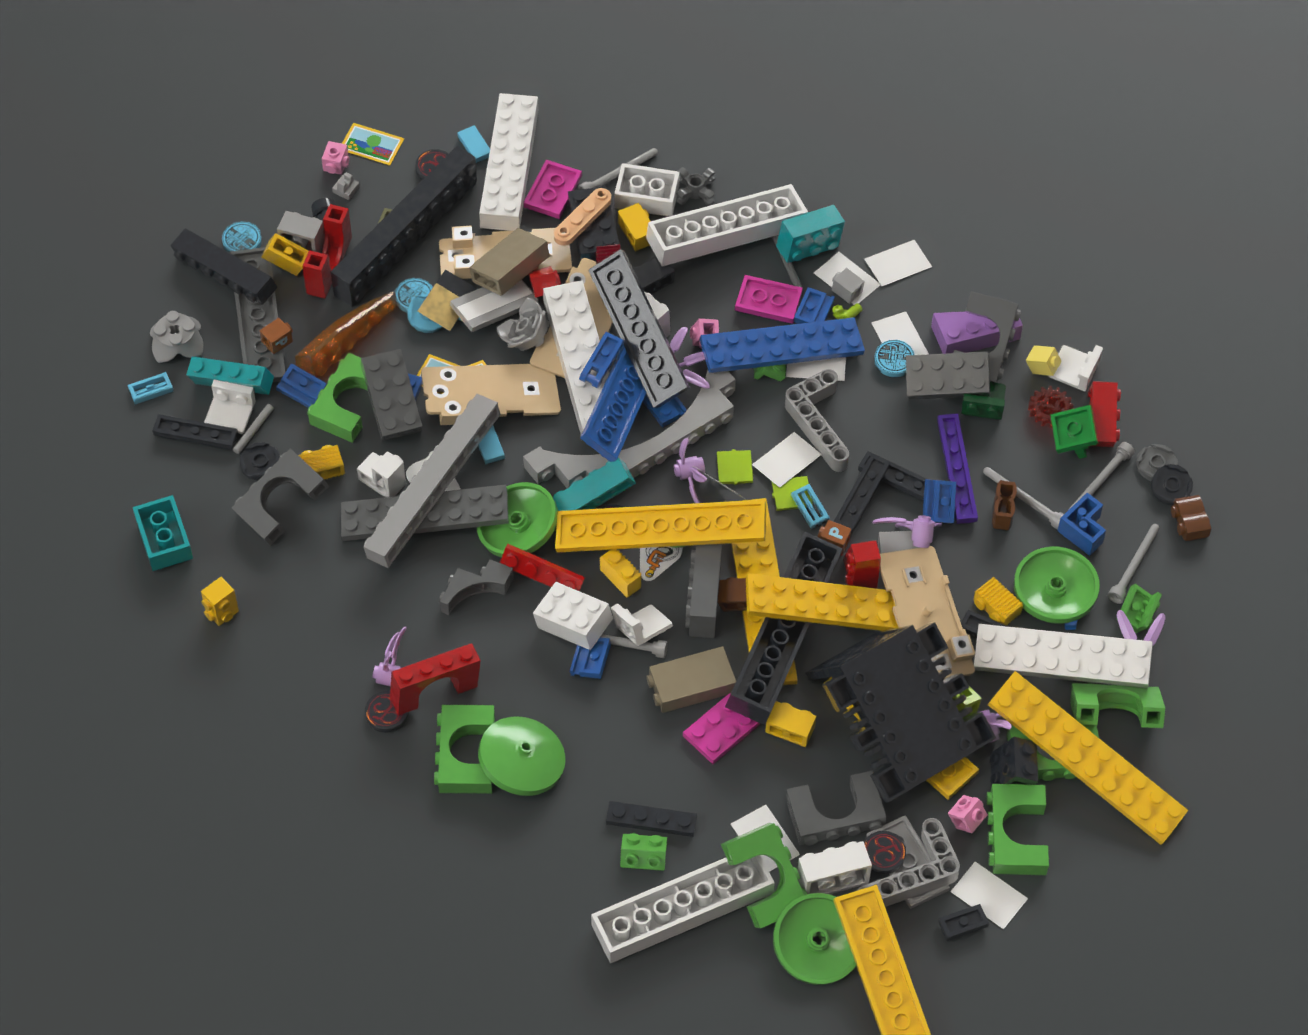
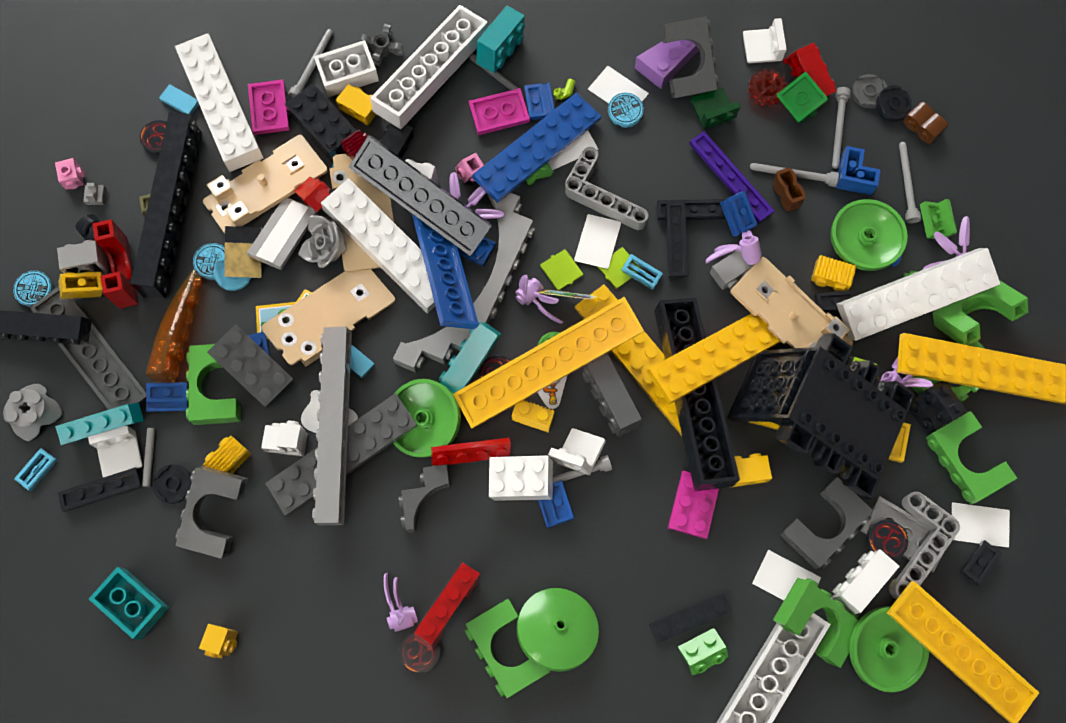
camera: 30 degrees left, 15 degrees up
(276, 335) = (118, 364): dark orange brick -> none
(372, 143) = (93, 144): sticker -> none
(509, 261) = (275, 191): dark tan brick -> none
(582, 216) = (311, 120): light nougat plate -> none
(601, 359) = (408, 239): blue plate -> none
(691, 679) = (646, 477): dark tan brick -> none
(732, 594) = (639, 382): reddish brown brick -> none
(835, 534) = (678, 287): dark orange brick -> none
(838, 264) = (546, 61): white sticker -> none
(847, 285) = (552, 67): light grey brick -> none
(862, 564) = (720, 302): red wedge -> none
(898, 263) = (576, 28): white sticker -> none
(947, 375) = (681, 104): dark grey brick -> none
(967, 813) = (928, 468): bright pink brick -> none
(1043, 360) = (740, 52): light yellow brick -> none

